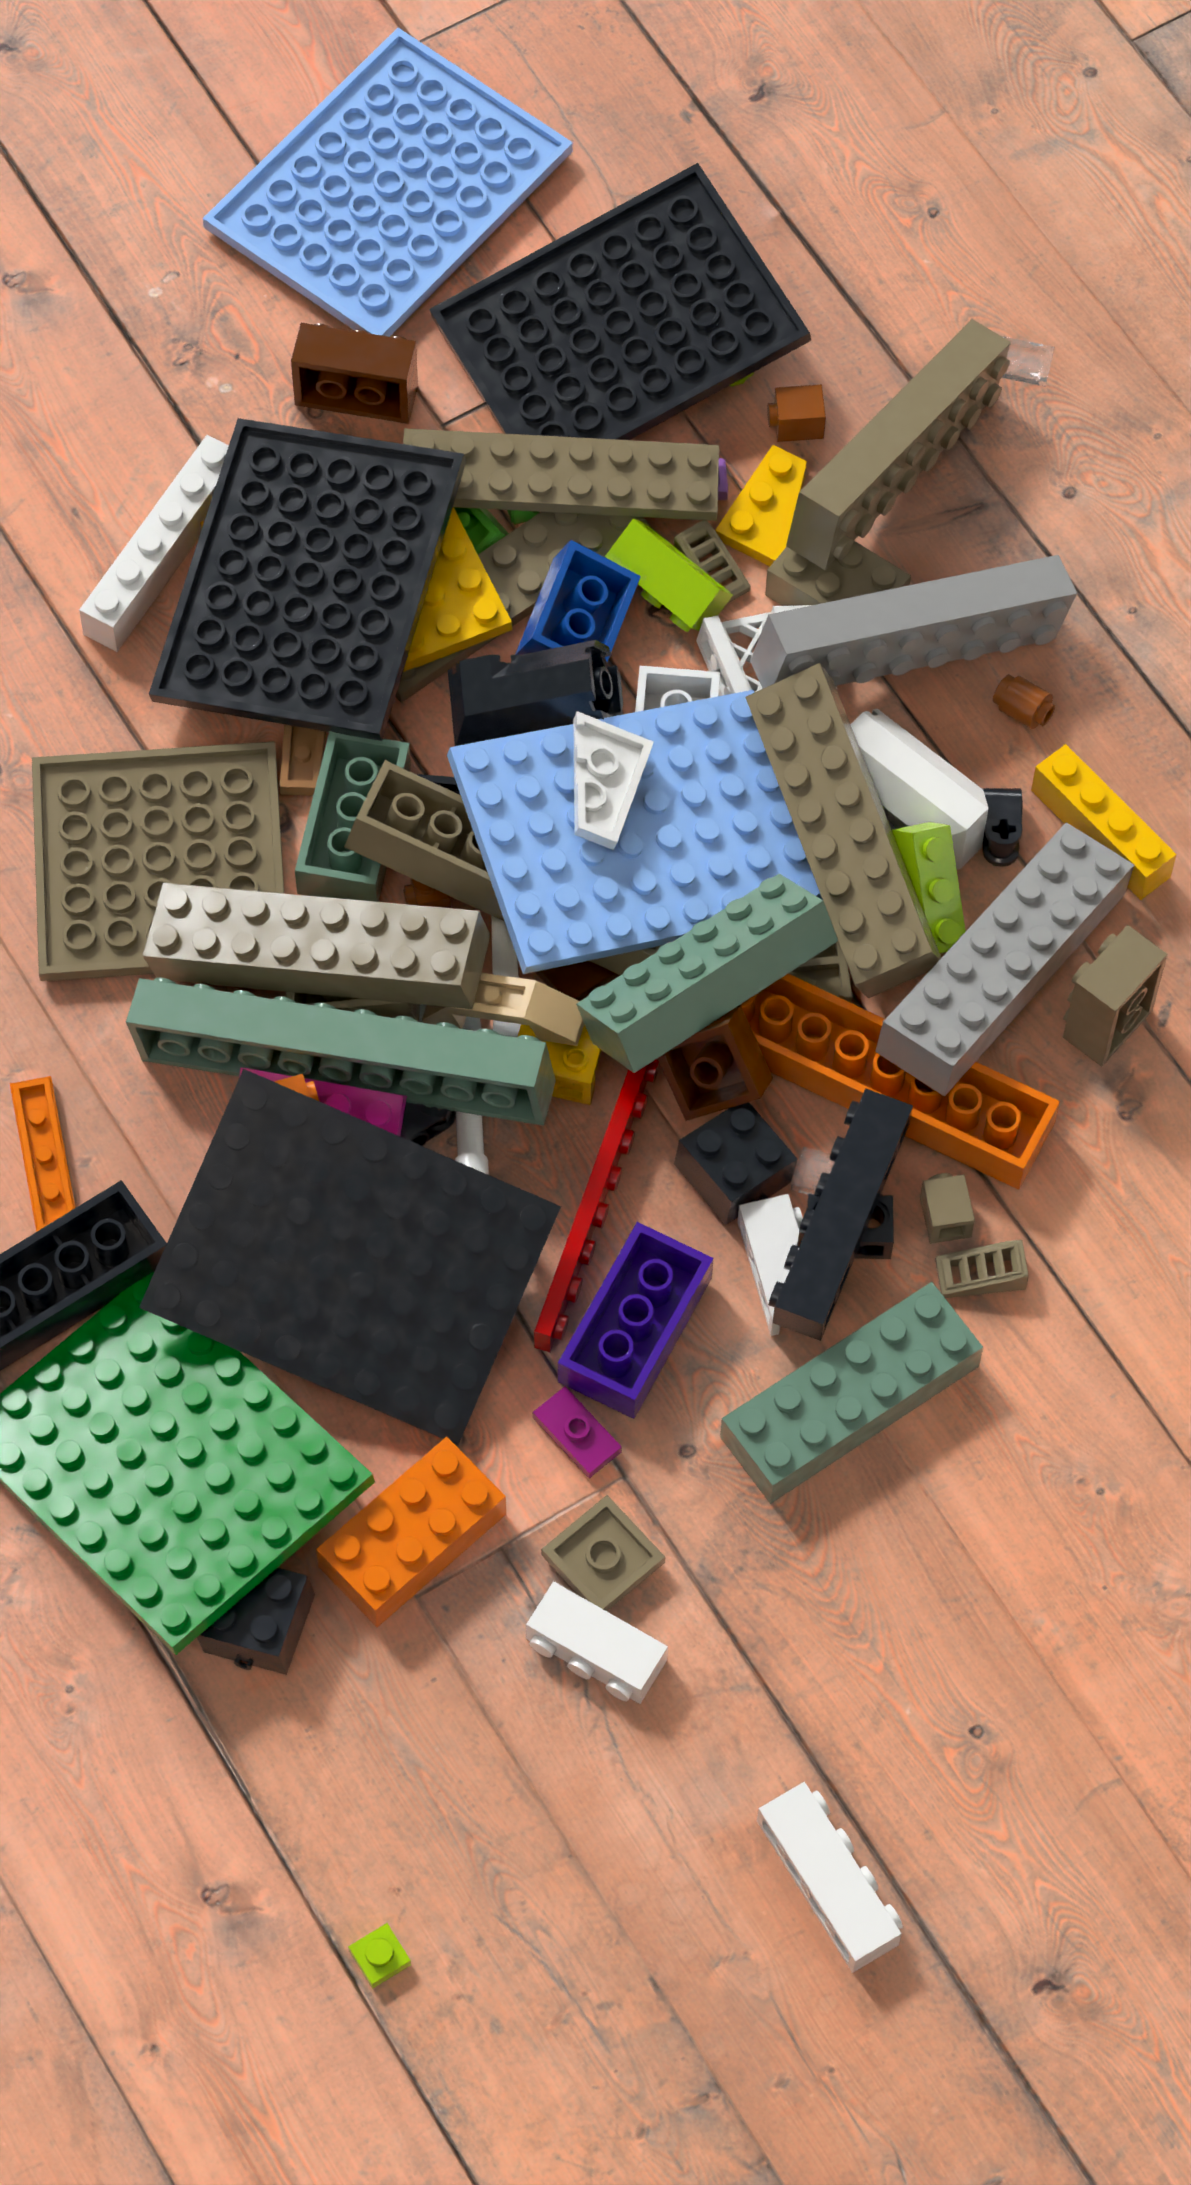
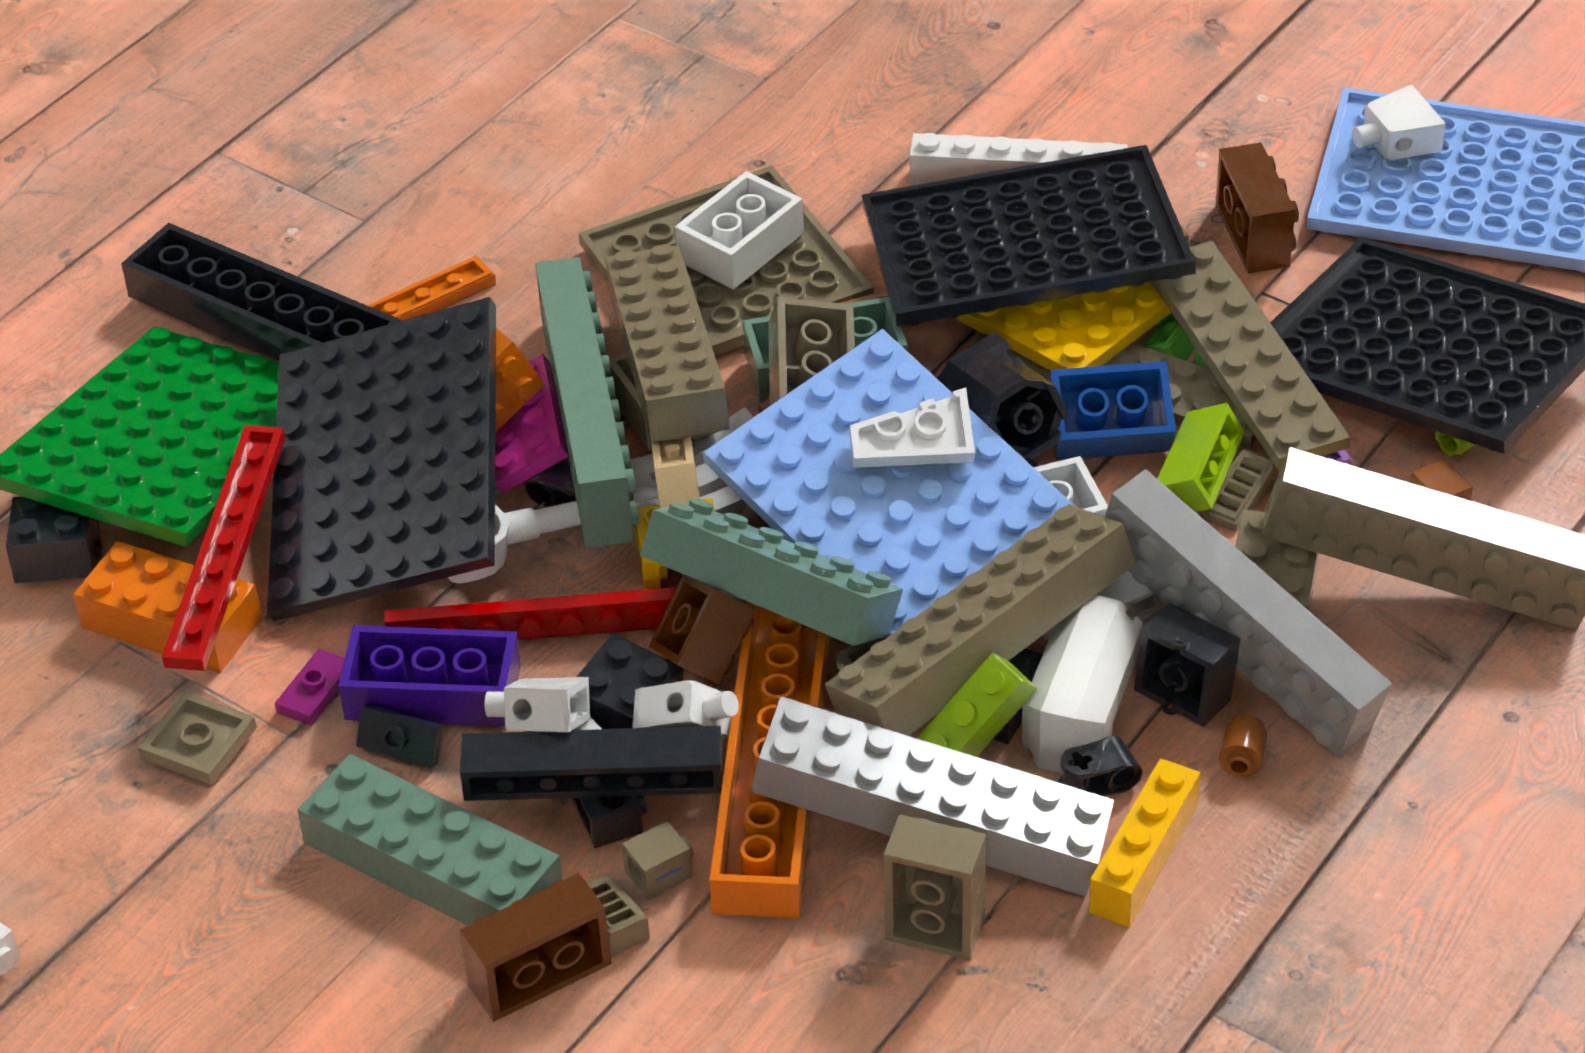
camera: 70 degrees right, 20 degrees down
(152, 821) = (740, 229): none -> white brick
(308, 199) = (1401, 126): none -> white torso
(403, 1442) = (223, 549): none -> red plate
(595, 1643) = (107, 758): white brick -> none
(690, 1374) = (399, 735): none -> black plate
(765, 1226) = (541, 704): none -> white torso
(814, 1113) = (684, 705): none -> white torso
(933, 694) = (1186, 664): none -> black brick
(1022, 1338) = (535, 946): none -> reddish brown brick

